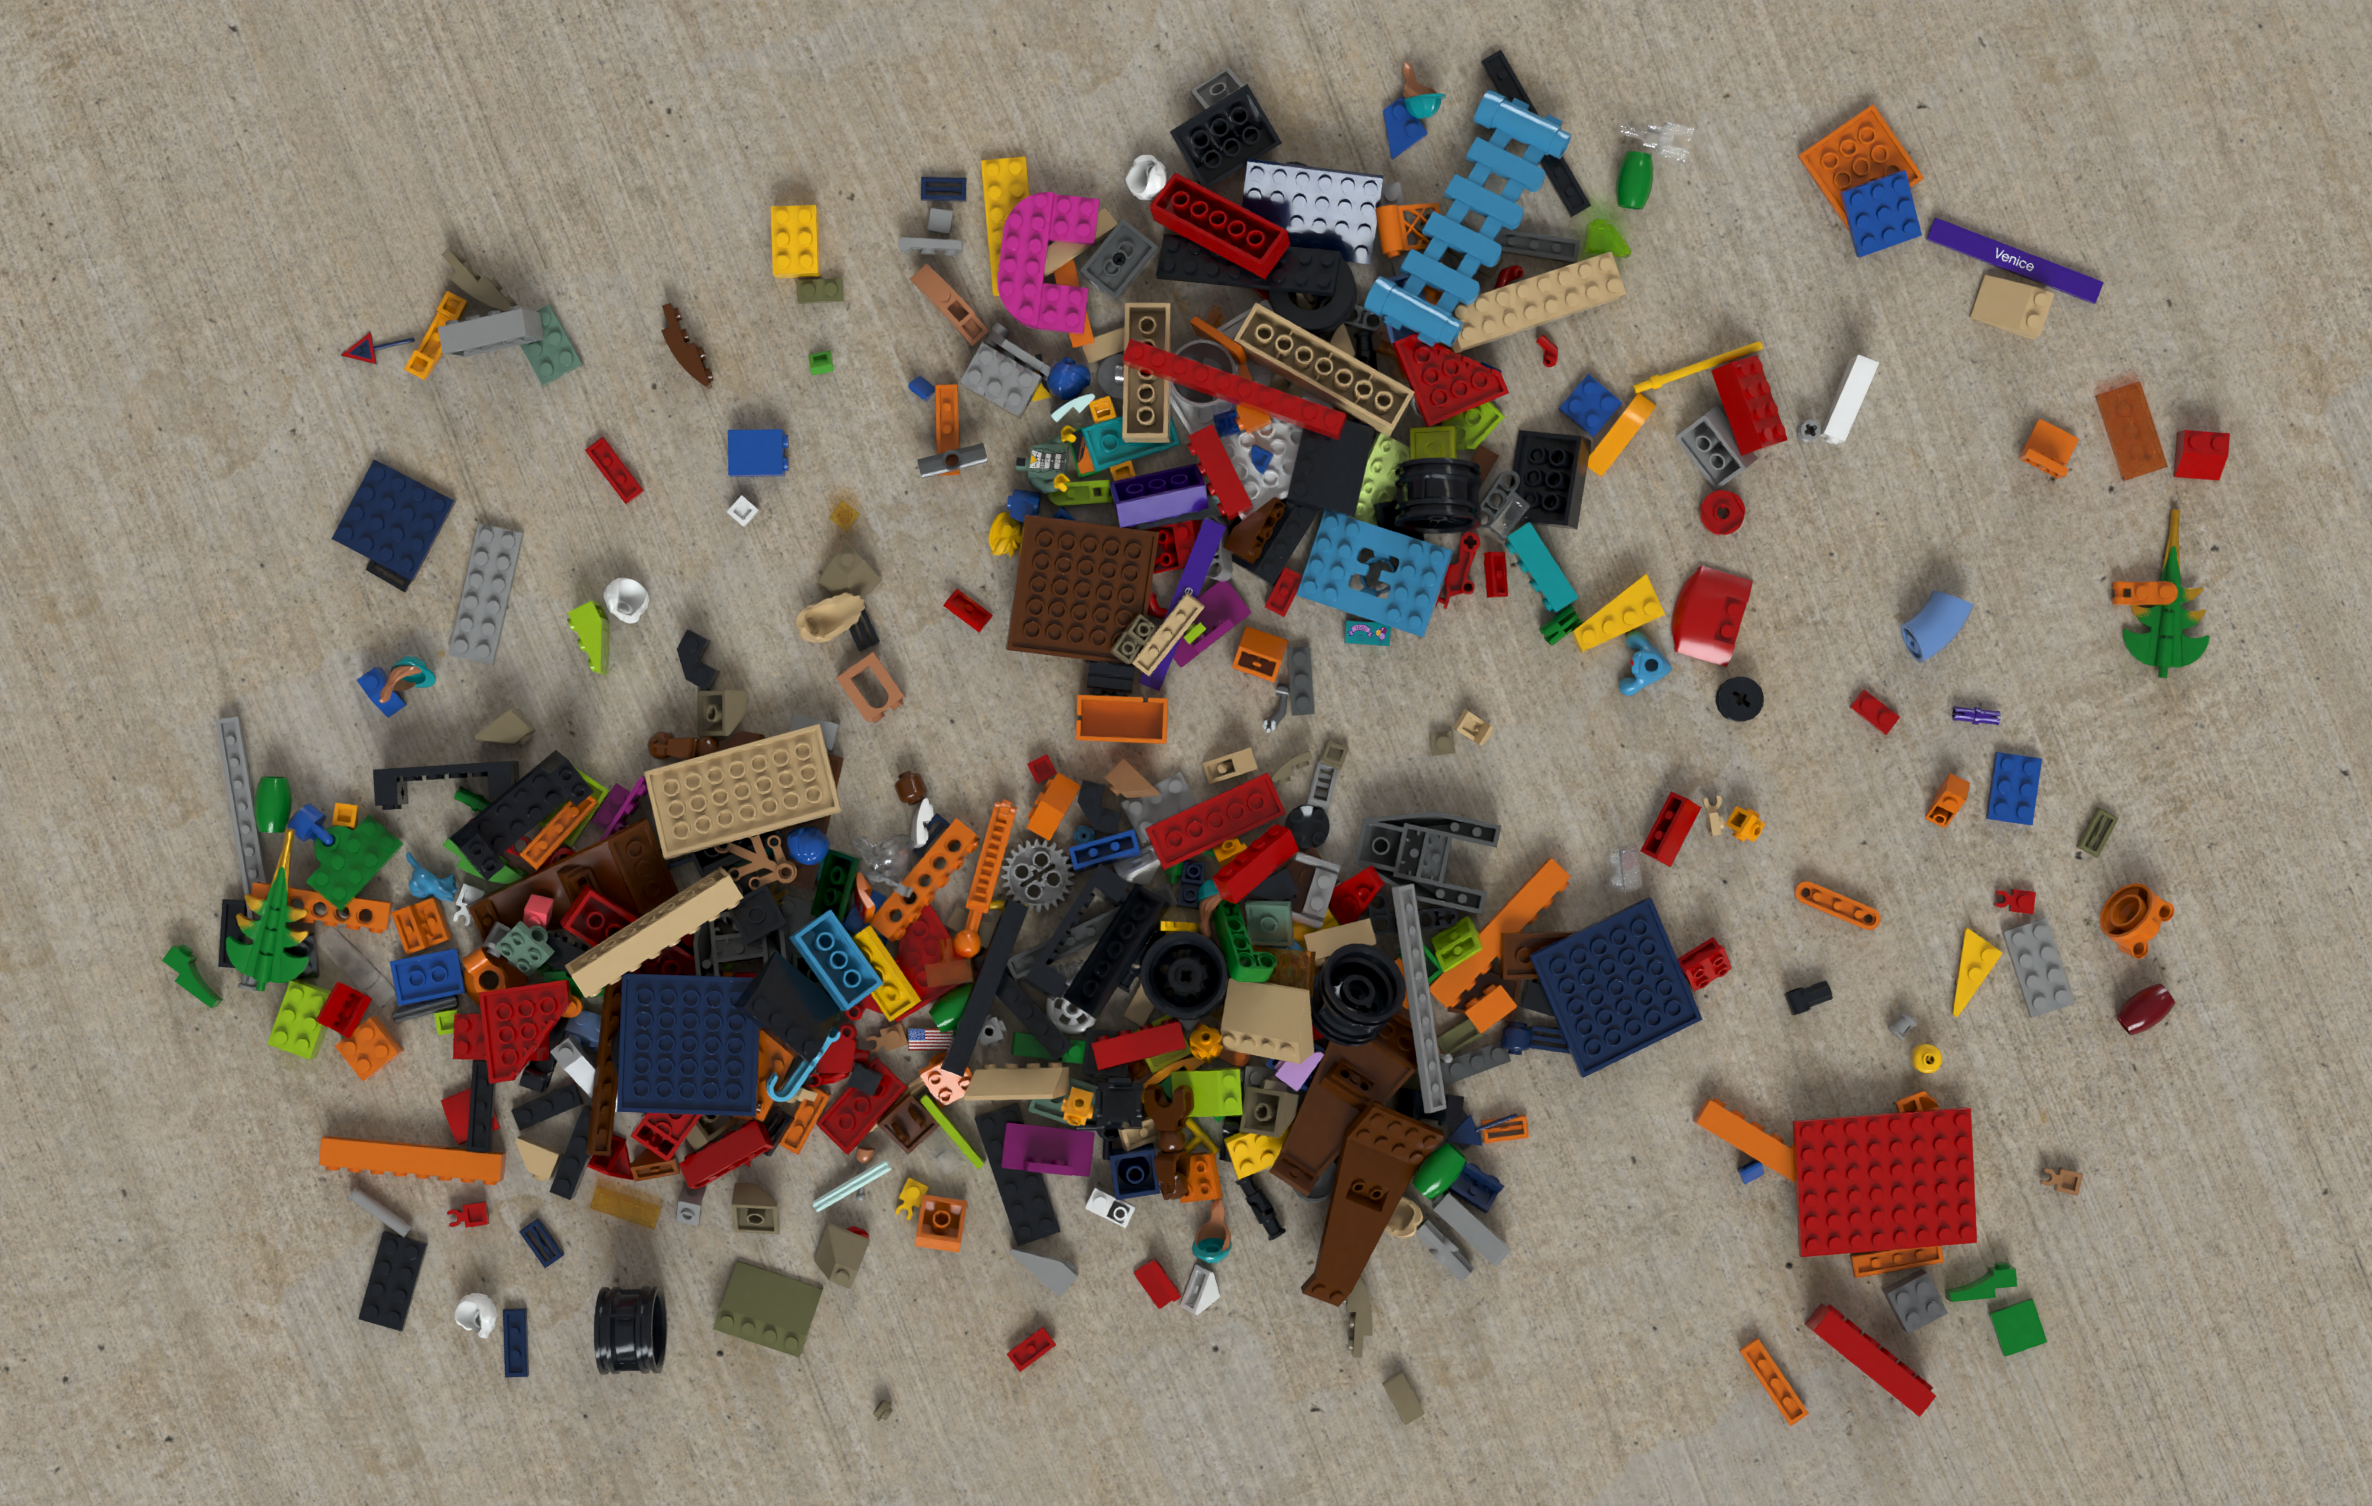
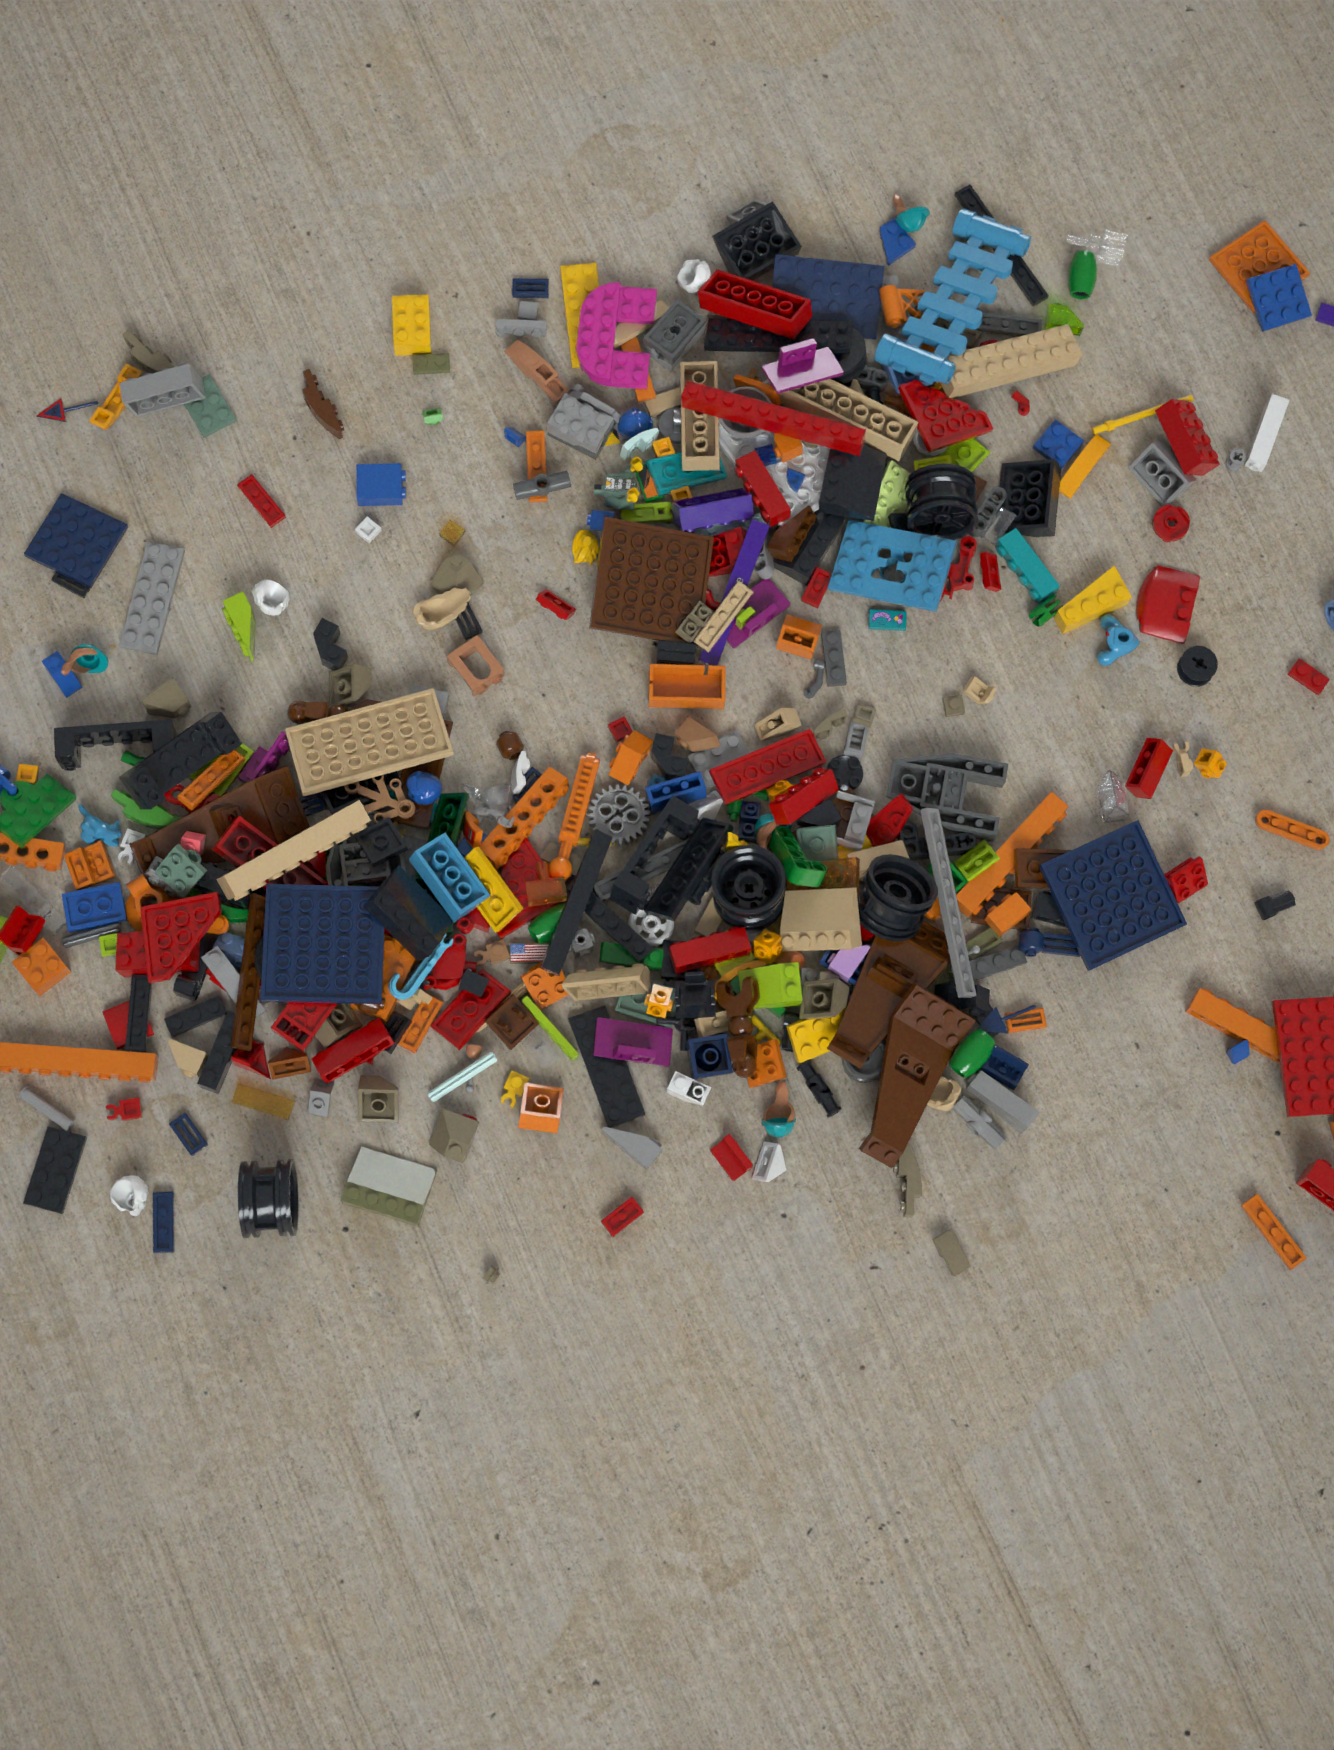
camera: 10 degrees left, 15 degrees down
(1273, 321) = (801, 366): none -> bracket

